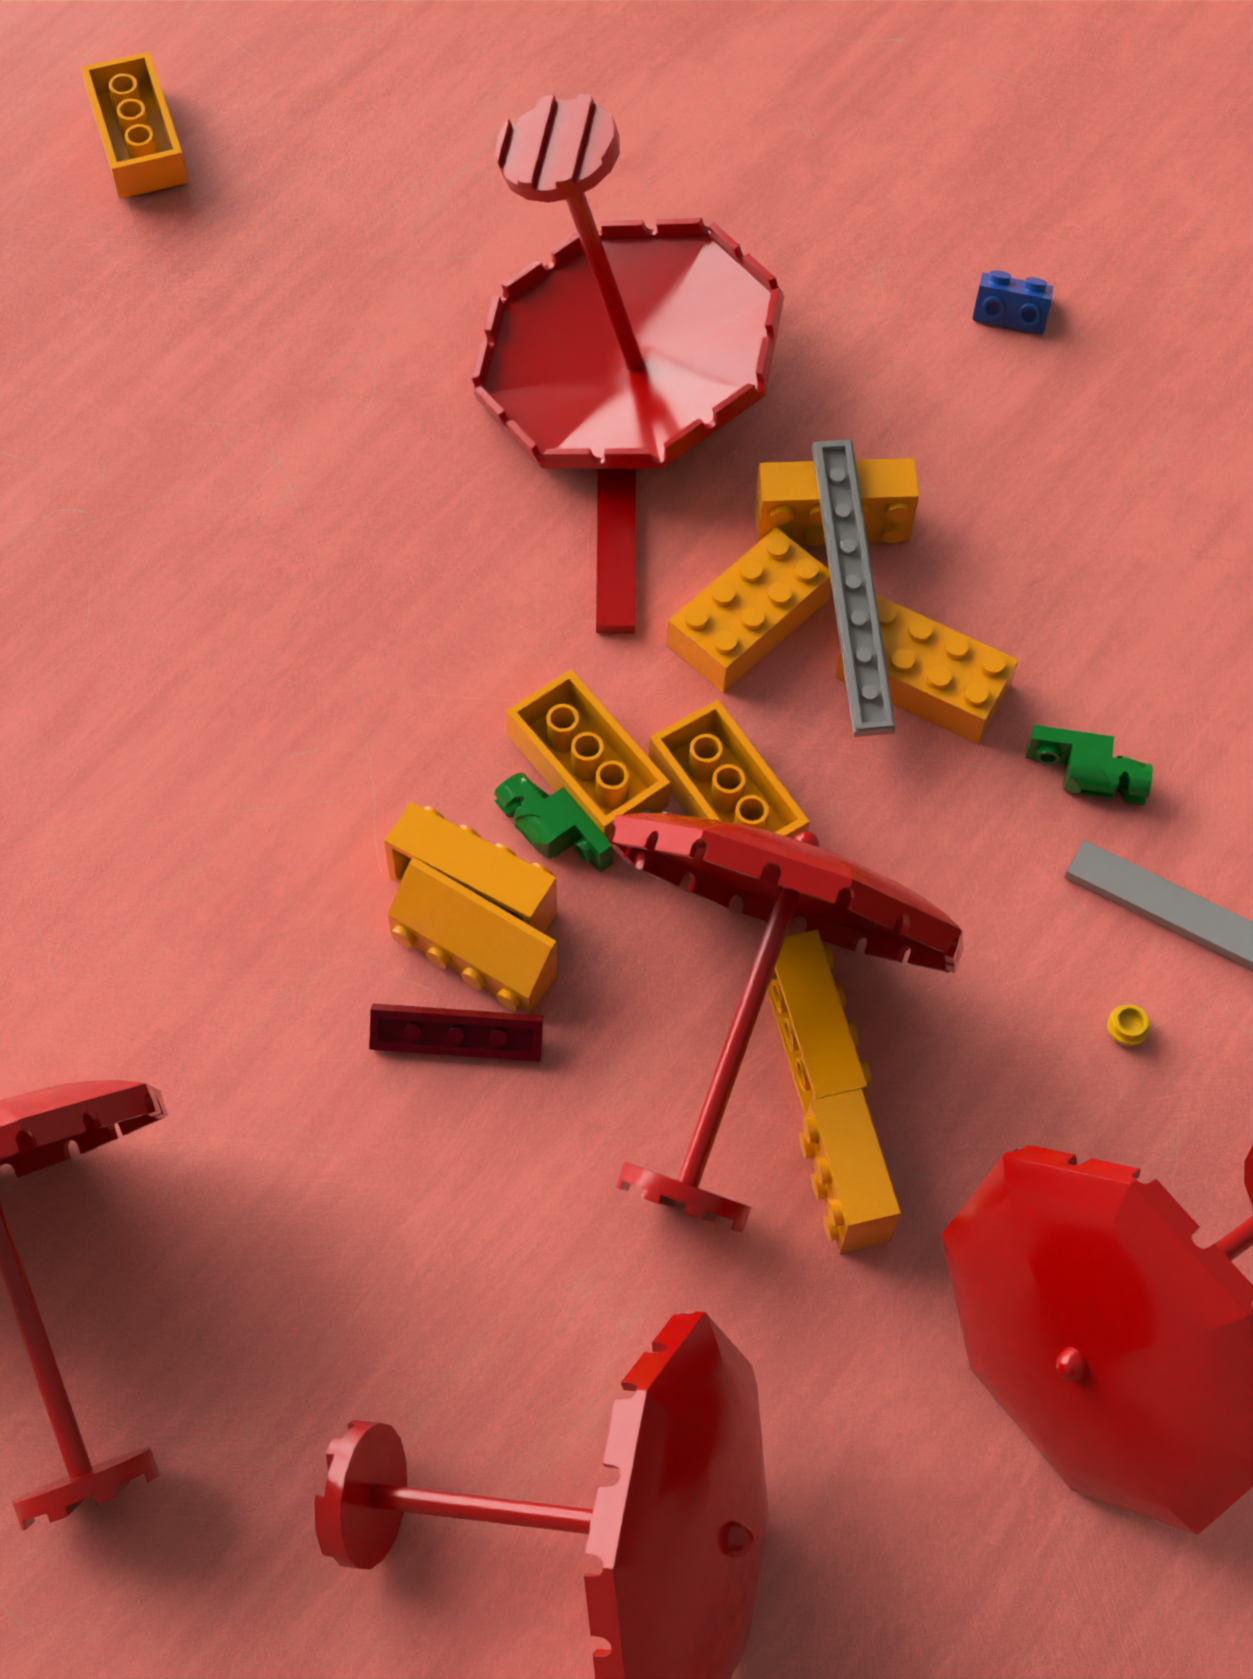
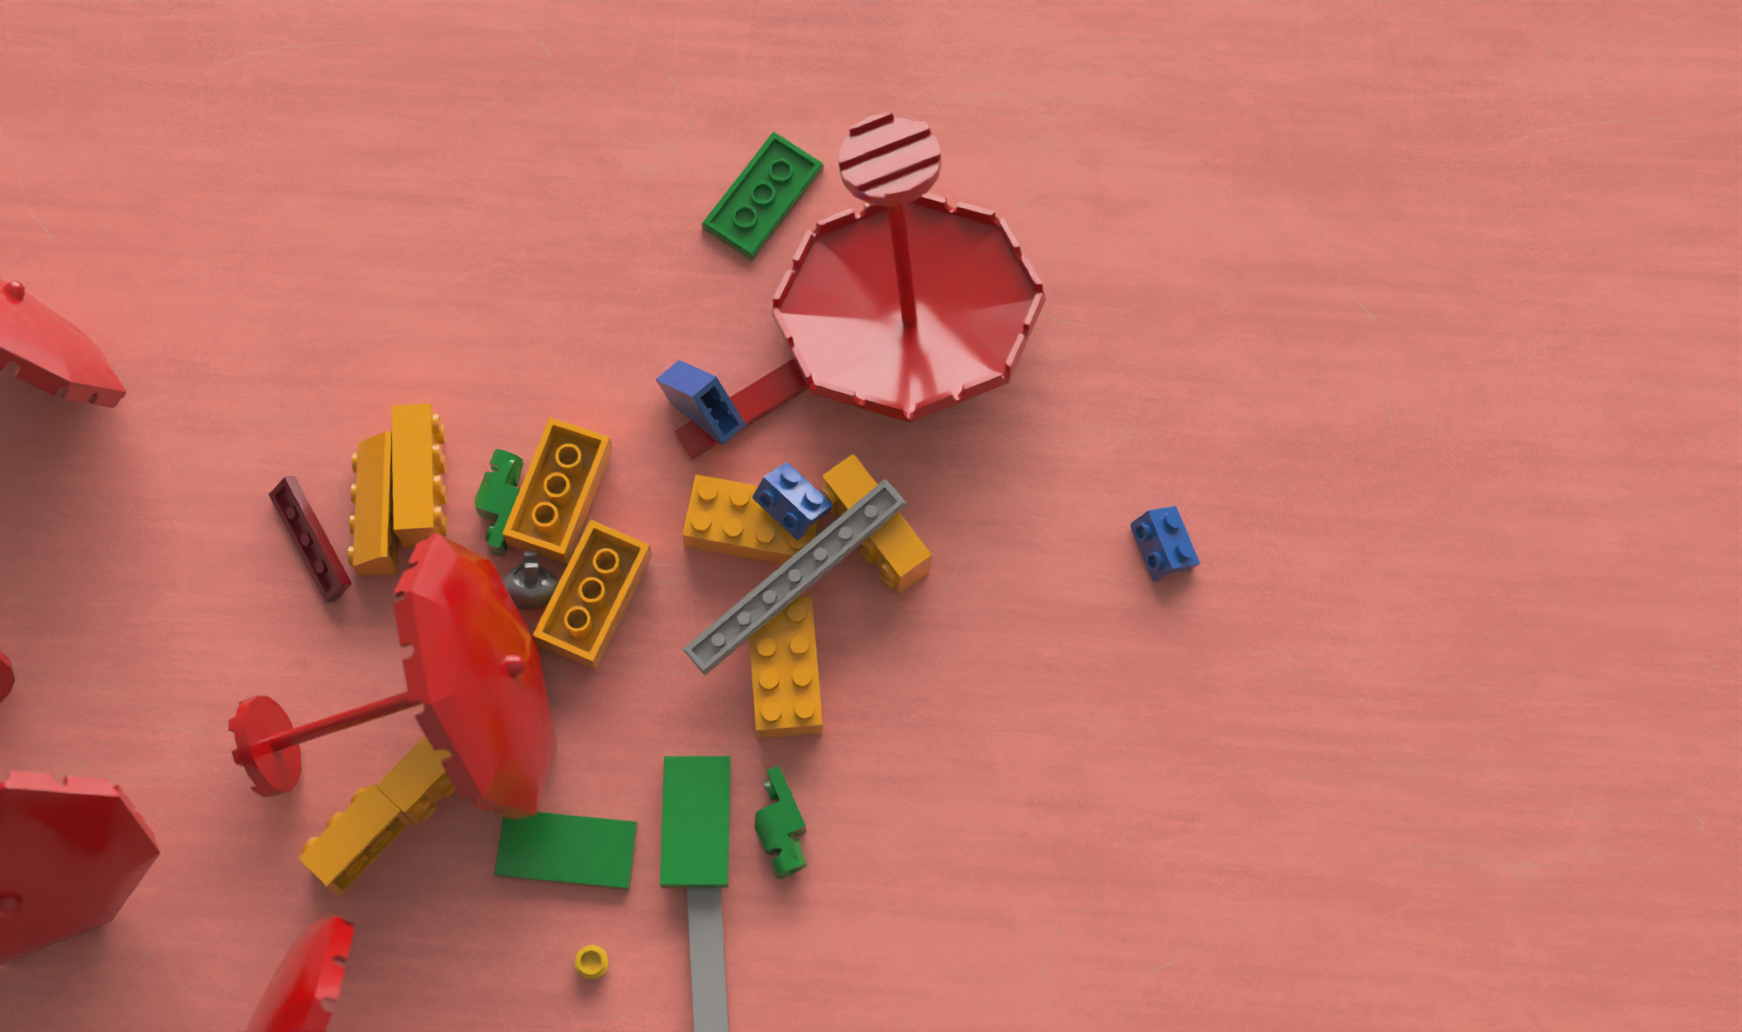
camera: 55 degrees right, 10 degrees up
(399, 415) = (762, 195): none -> green tile
(586, 573) = (701, 400): none -> blue slope
(767, 546) = (791, 500): none -> blue bracket
(994, 977) = (567, 850): none -> green tile
(1039, 840) = (695, 822): none -> green tile

